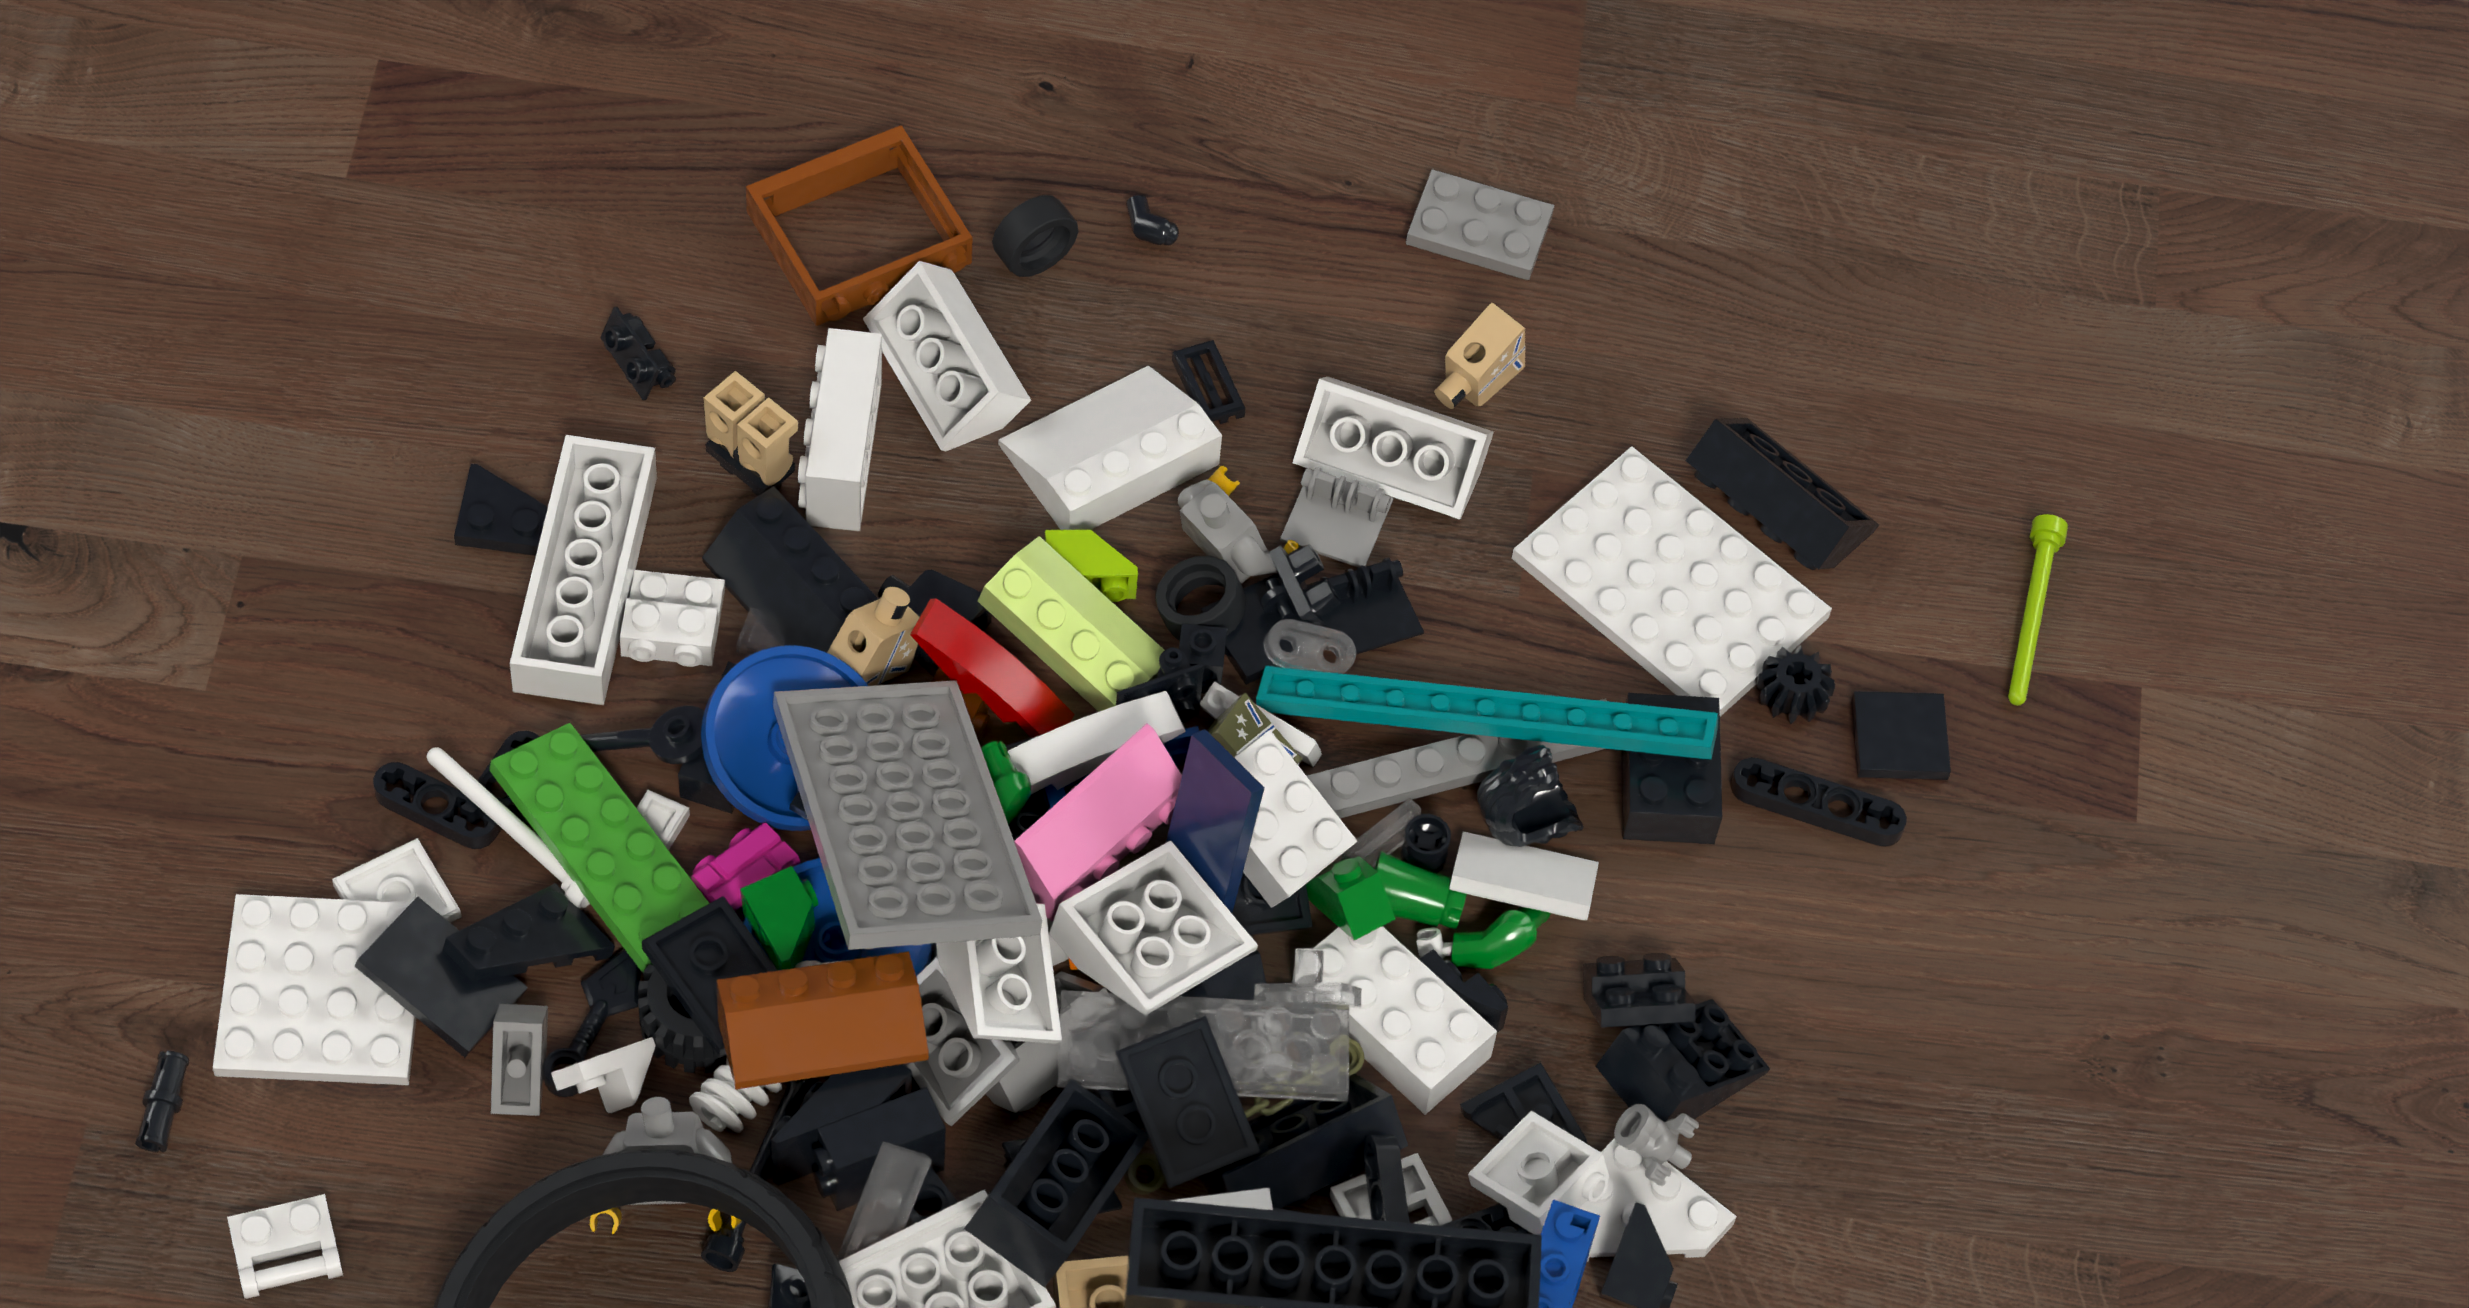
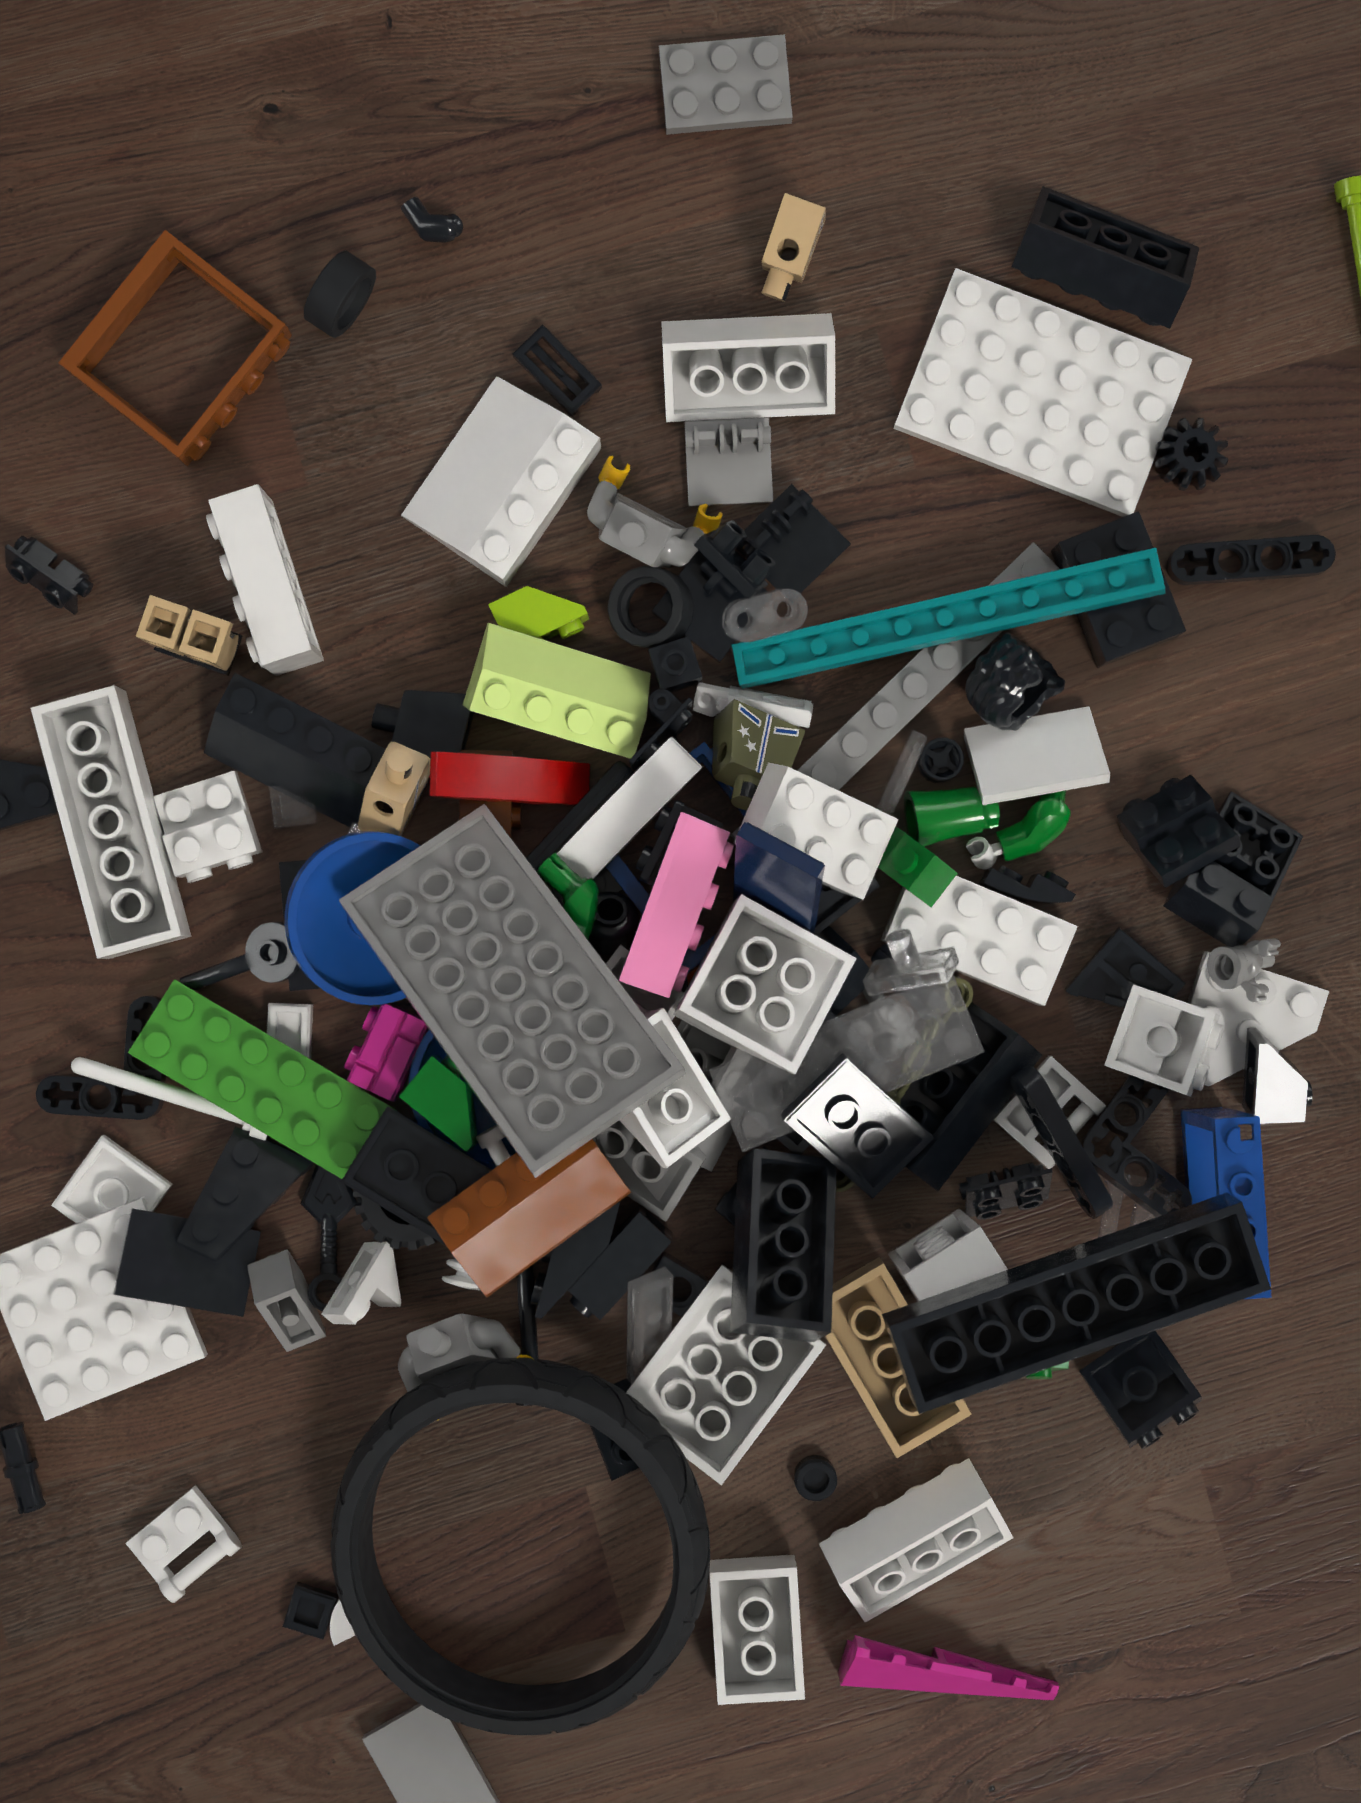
camera: 20 degrees left, 30 degrees up
(946, 357) = (317, 454): white slope -> none
(1900, 735) = (1296, 459): black tile -> none

